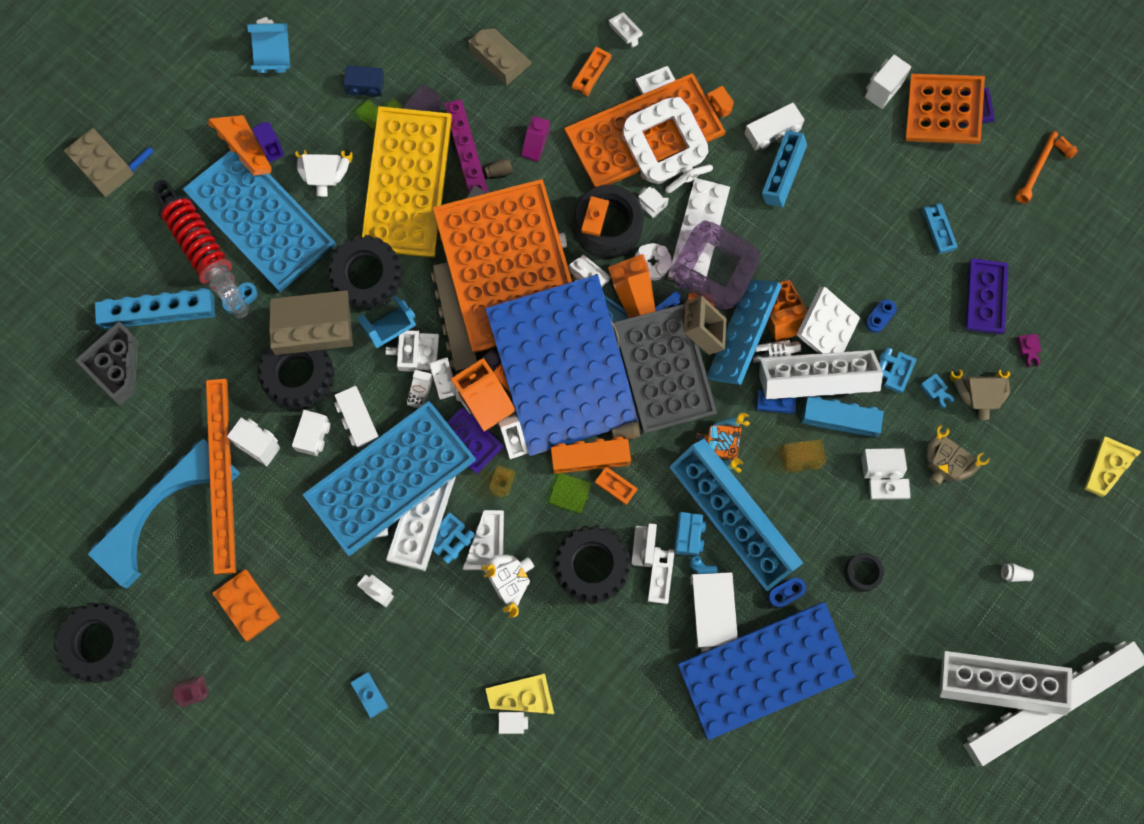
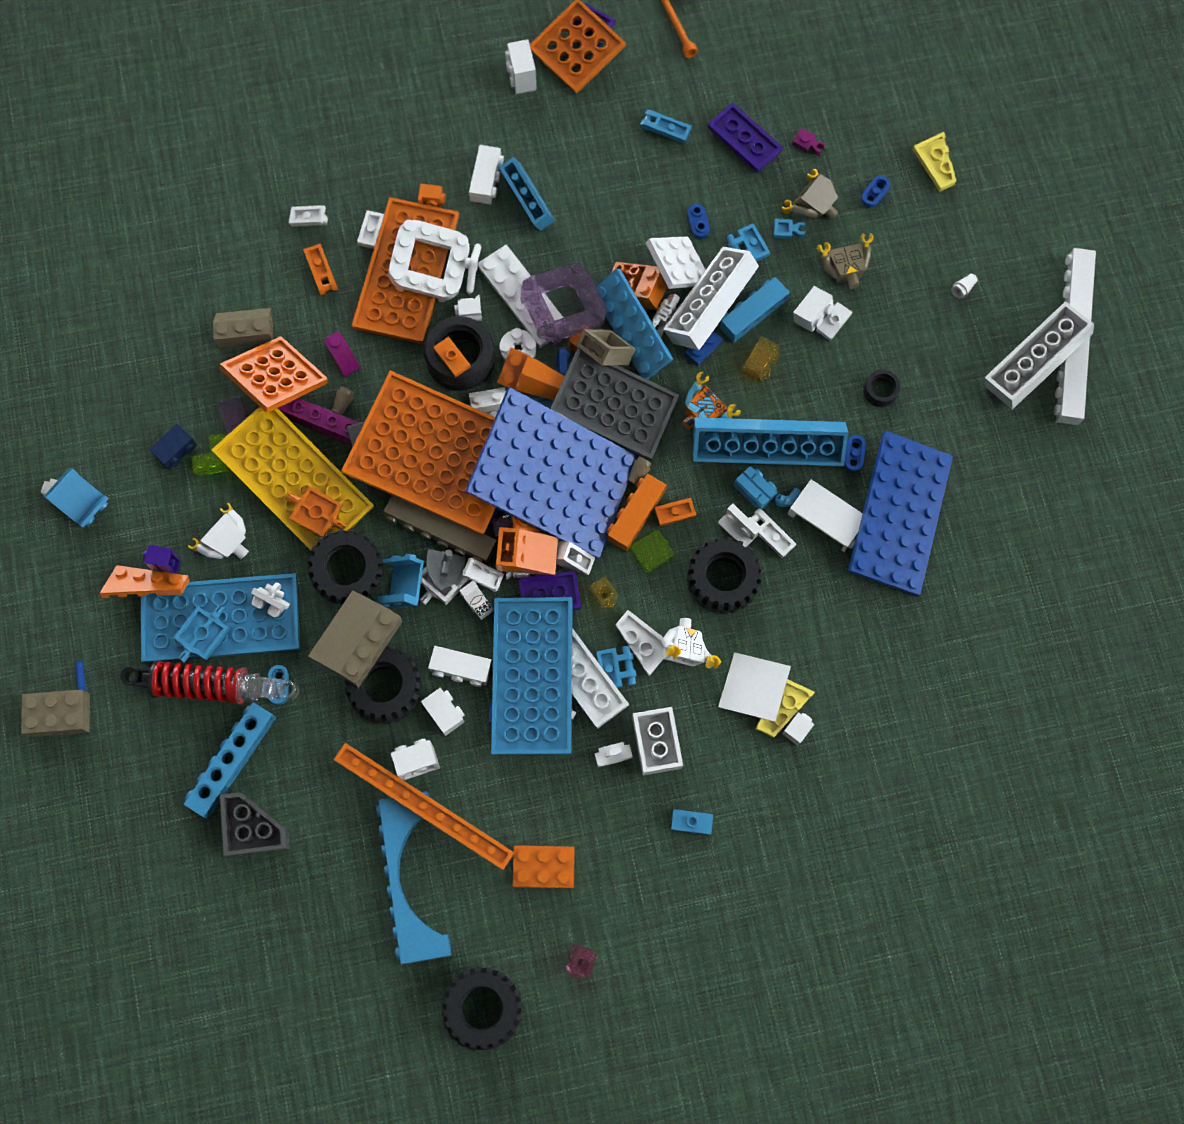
camera: 50 degrees left, 0 degrees up
(234, 212) = (201, 633): none -> dark azure plate
(300, 239) = (262, 596): none -> white hips
(392, 217) = (316, 511): none -> orange plate
(412, 615) = (657, 741): none -> white brick
(424, 345) = (444, 567): none -> dark grey shield
(484, 98) = (266, 354): none -> orange piece
(520, 660) = (754, 686): none -> white piece
(1033, 436) = (874, 193): none -> blue plate

